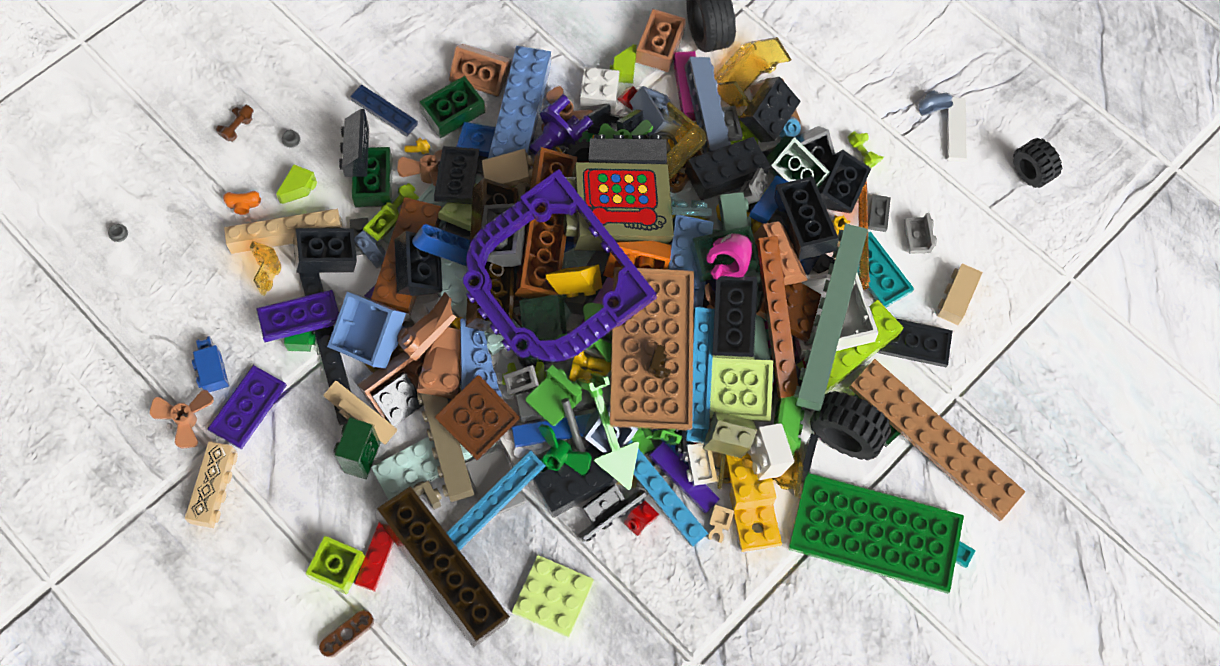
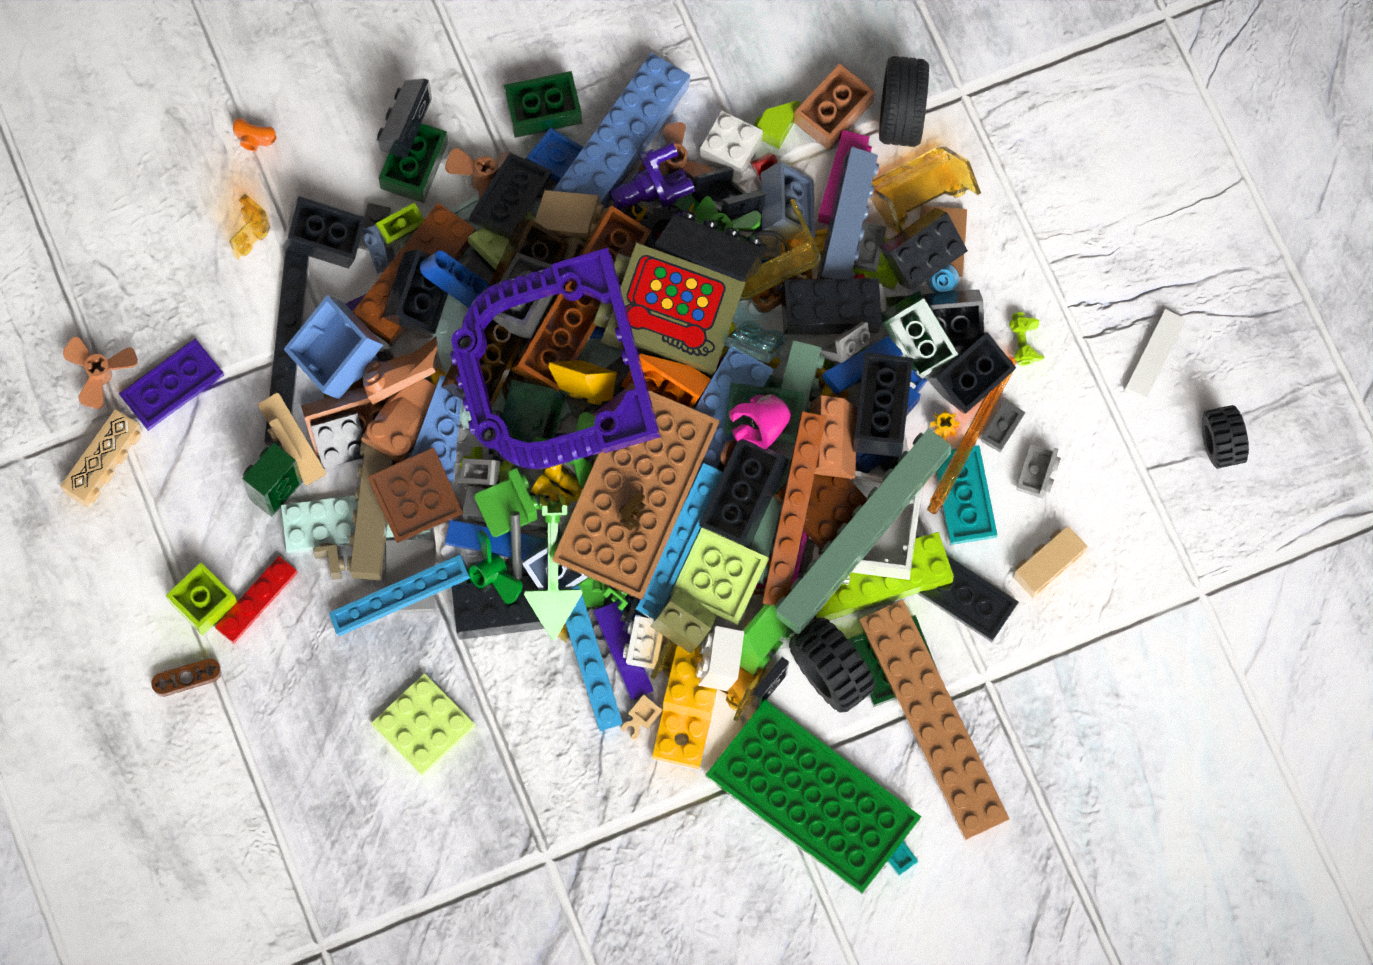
camera: 25 degrees right, 5 degrees up
(118, 233) = (99, 122): dark grey plate -> none
(209, 366) = (146, 321): blue brick -> none
(243, 116) = (293, 25): reddish brown piece -> none
(277, 231) = (284, 188): tan brick -> none
(290, 138) = (338, 75): dark grey plate -> none
(296, 184) = (323, 137): lime slope -> none
(298, 315) = (265, 300): dark purple tile -> none
(300, 342) = (257, 326): green brick -> none
(384, 110) = (461, 78): dark blue plate -> none
(404, 191) = (445, 192): lime piece -> none
(421, 146) = (487, 140): yellow plate -> none
(442, 566) = (313, 644): dark brown brick -> none
(482, 68) = (597, 65): nougat slope -> none
(606, 508) = (522, 651): bracket -> none
(641, 517) = (556, 677): red bracket -> none
(935, 101) = (1142, 310): sand blue piece -> none

